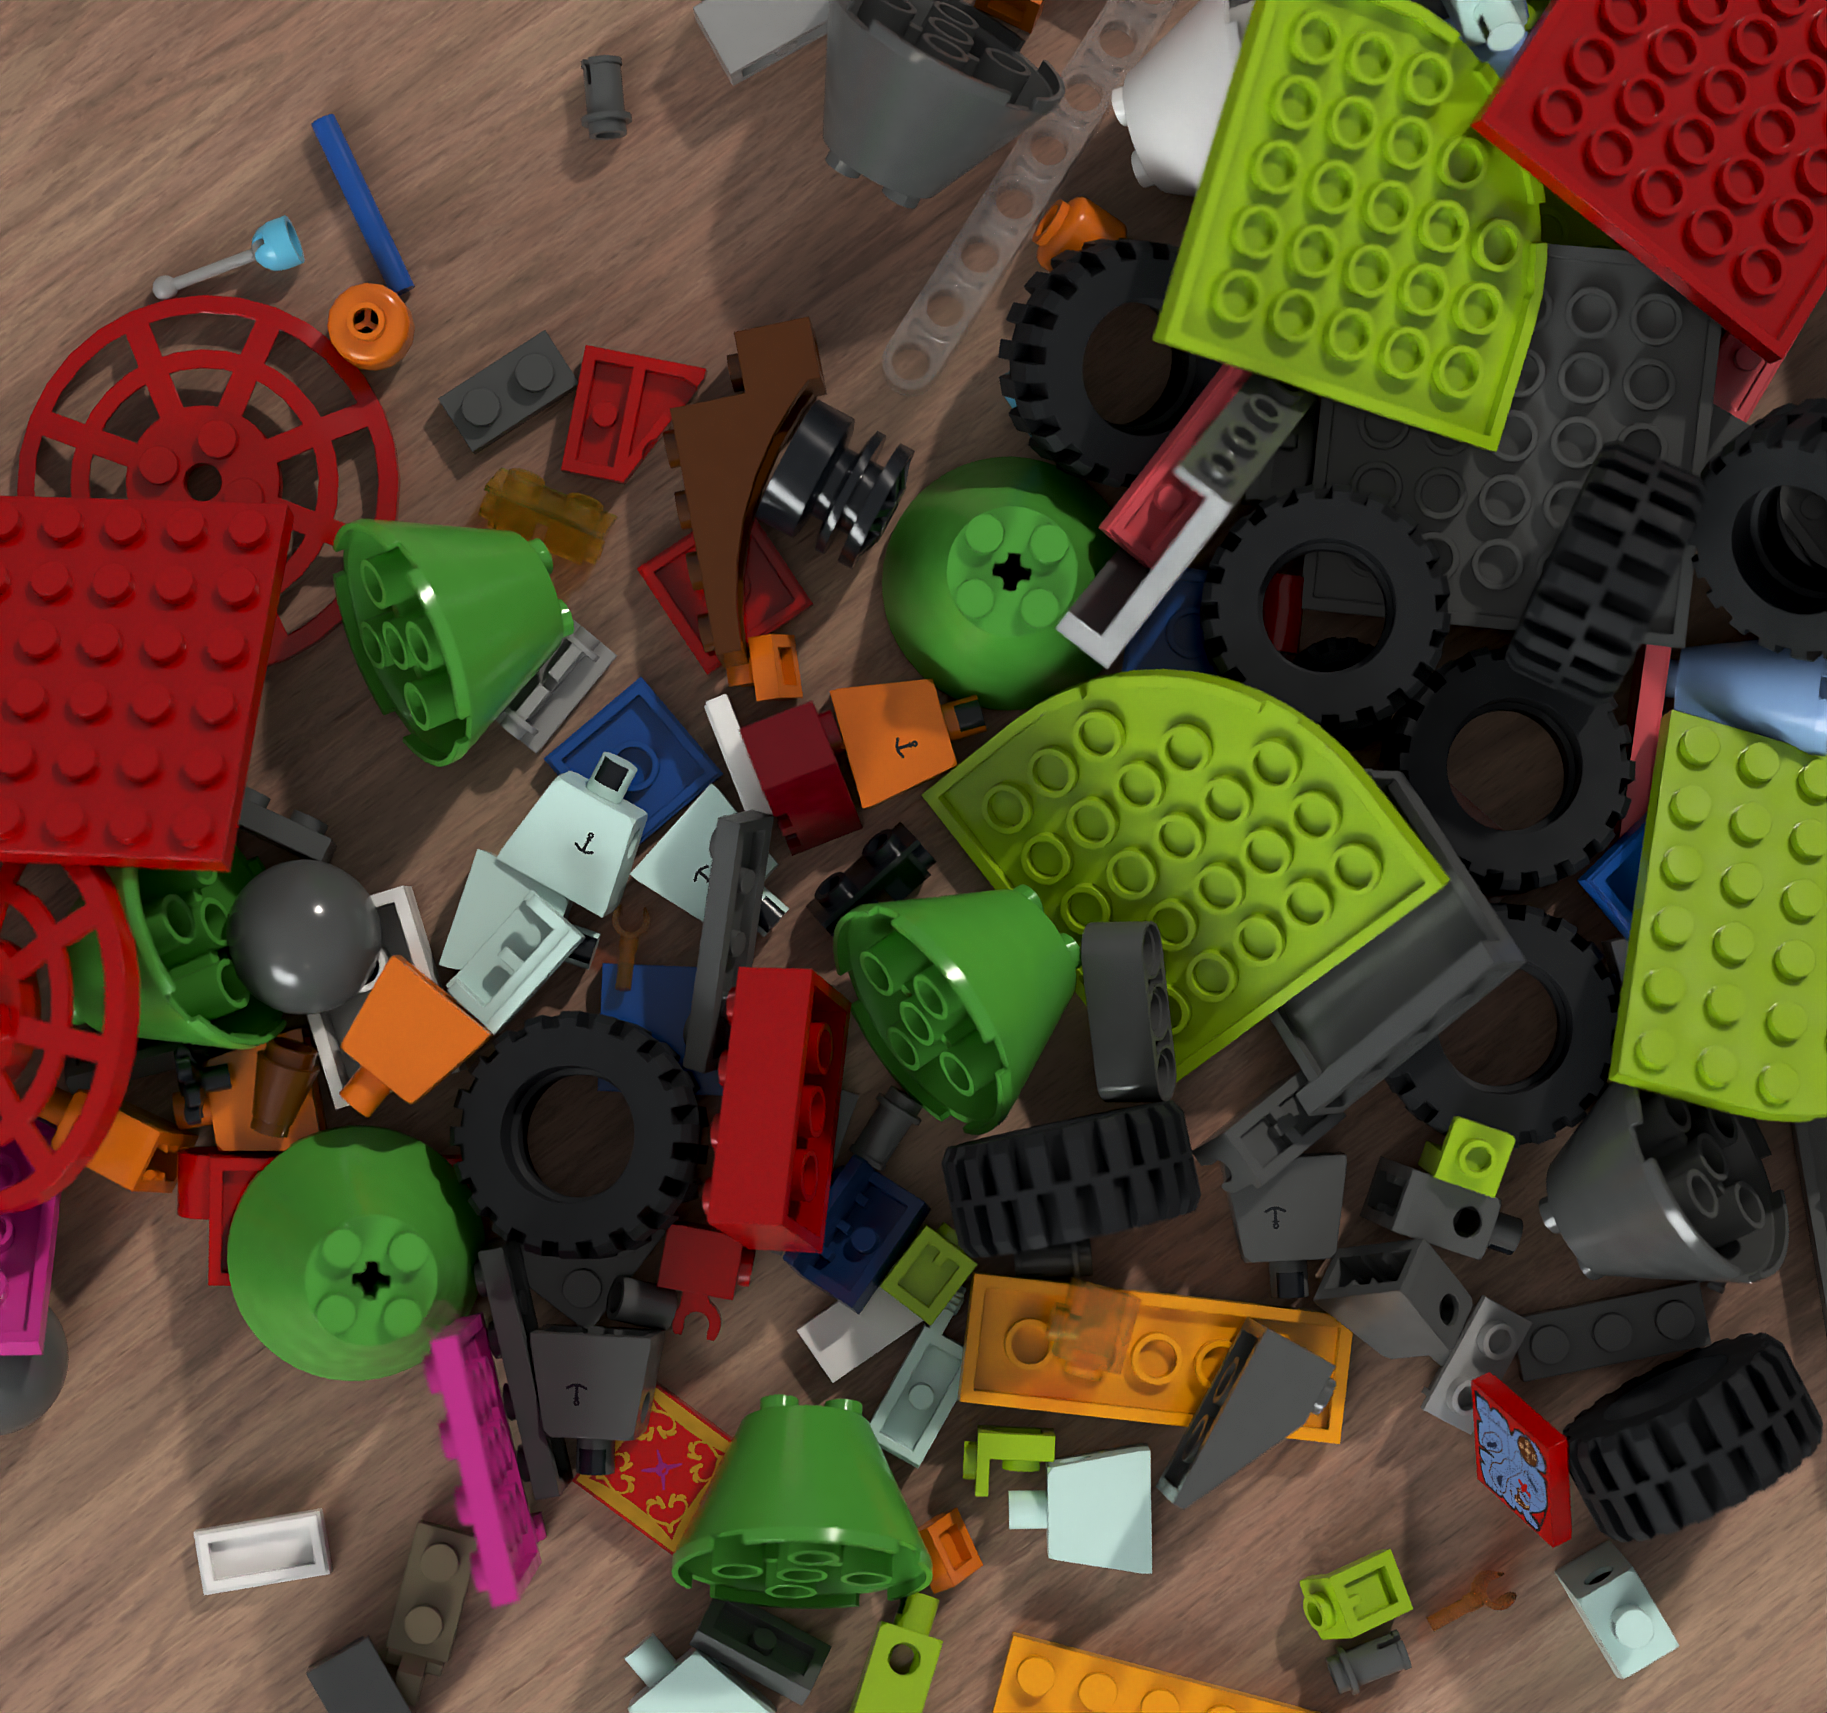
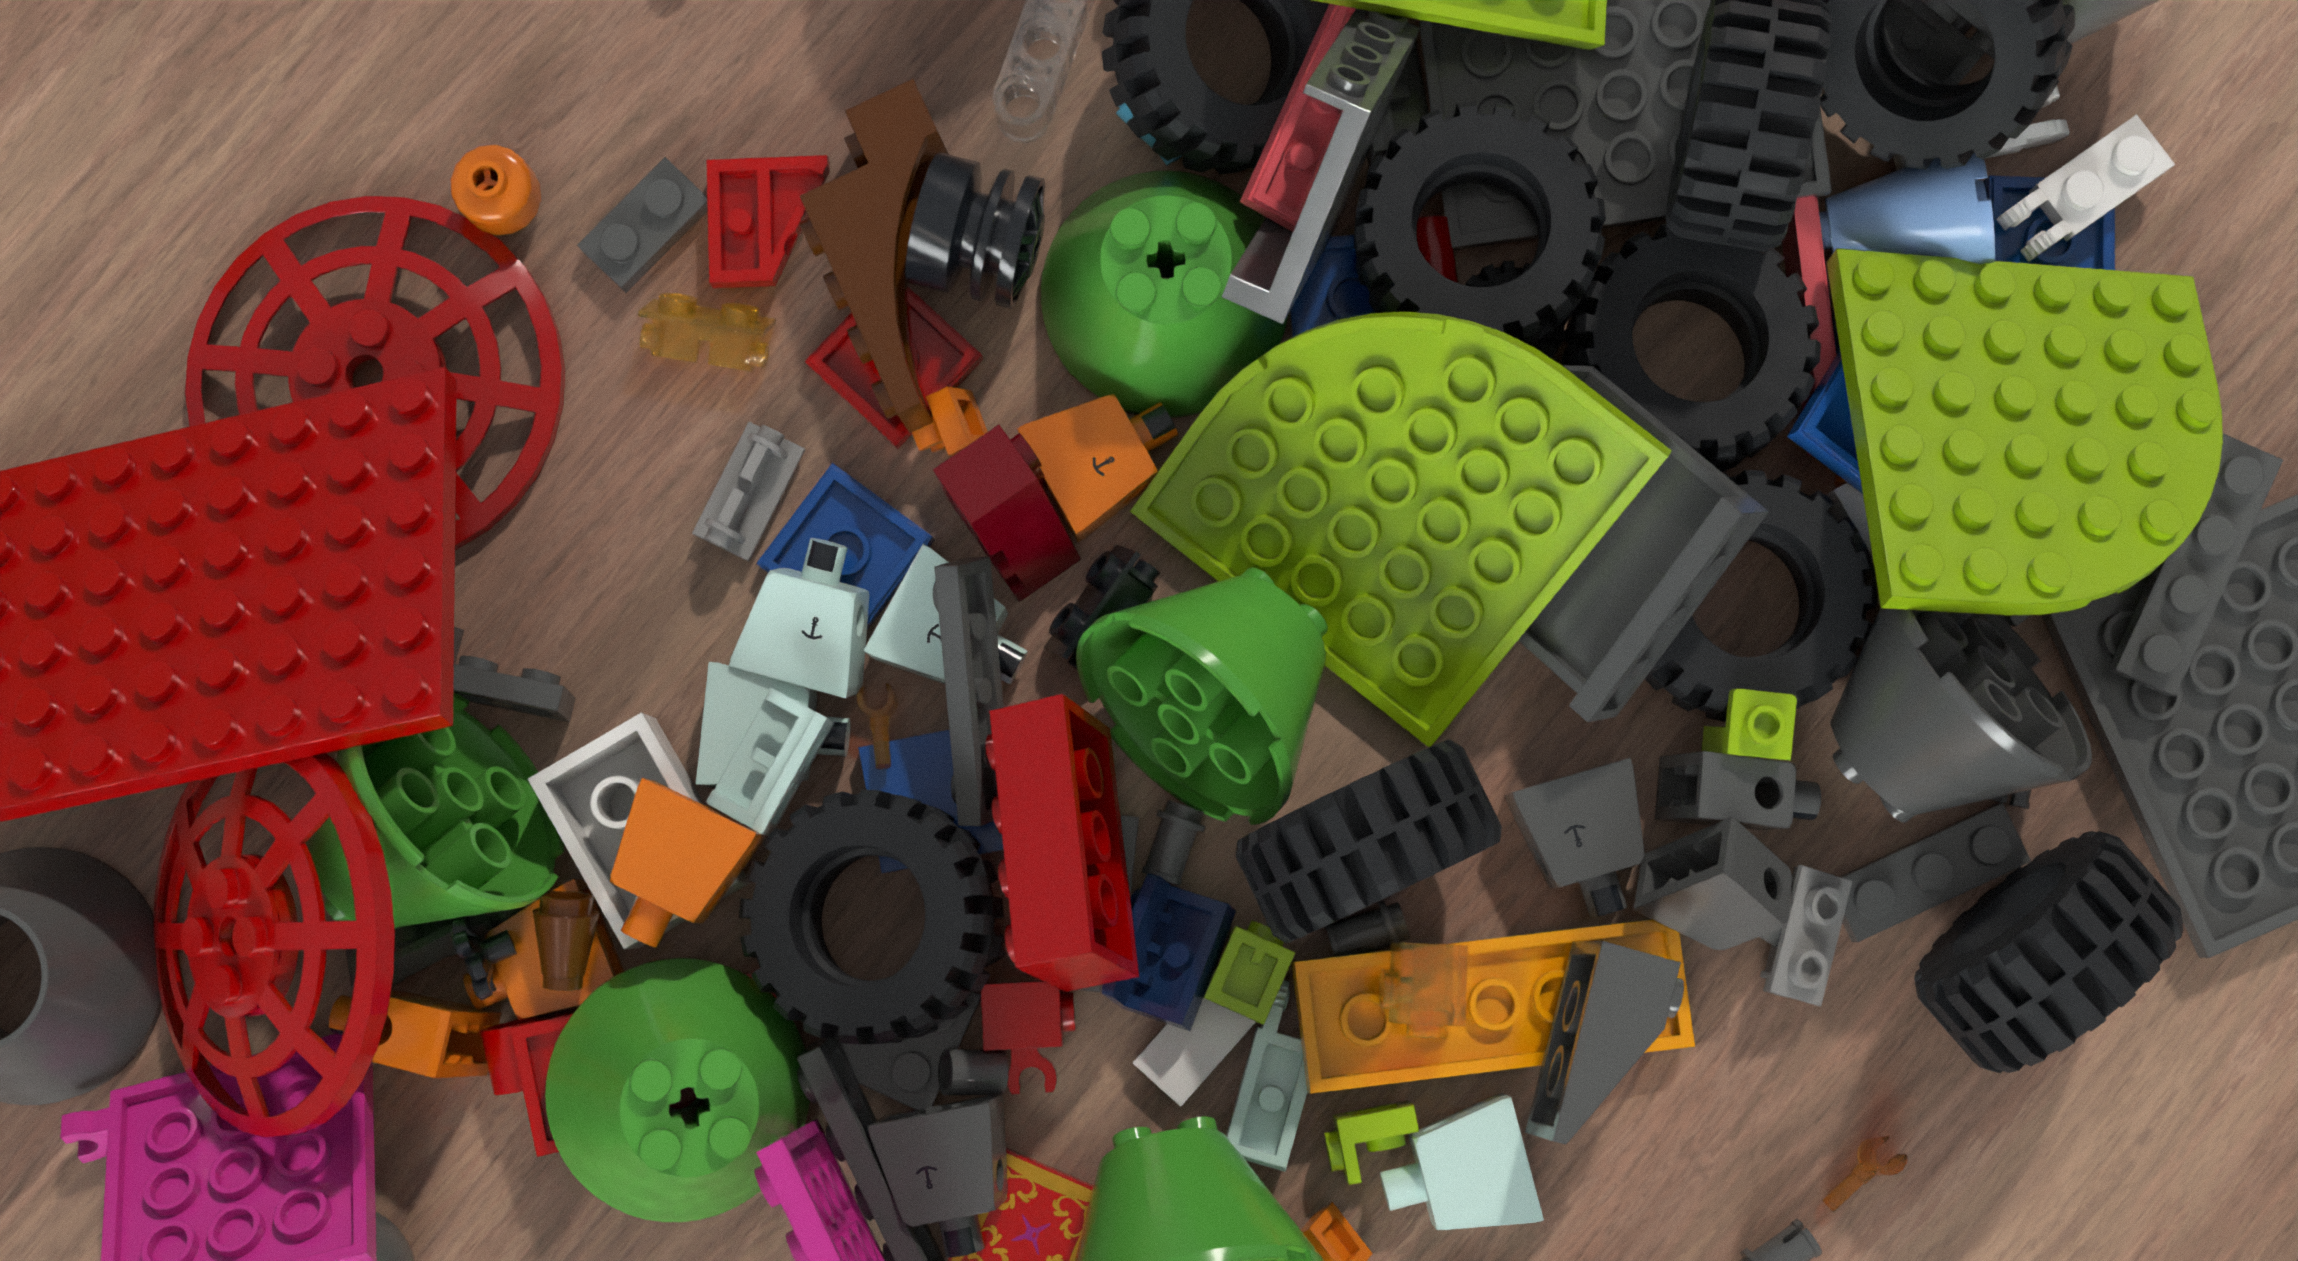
camera: 10 degrees left, 5 degrees down
(273, 247) = (386, 139): hinge -> none
(304, 937) = (554, 786): dark grey piece -> none
(362, 204) = (464, 81): blue bar -> none
(446, 624) = (627, 447): bright green cone -> none
(725, 727) = (940, 510): white tile -> none
(1128, 1011) = (1382, 667): dark grey beam -> none
(1265, 1135) = (1548, 756): dark grey hinge -> none
(1355, 1596) = (1748, 1196): lime bracket -> none
(1522, 1459) = (1883, 1016): tile -> none
(1617, 1610) = (2015, 1149): light aqua torso -> none

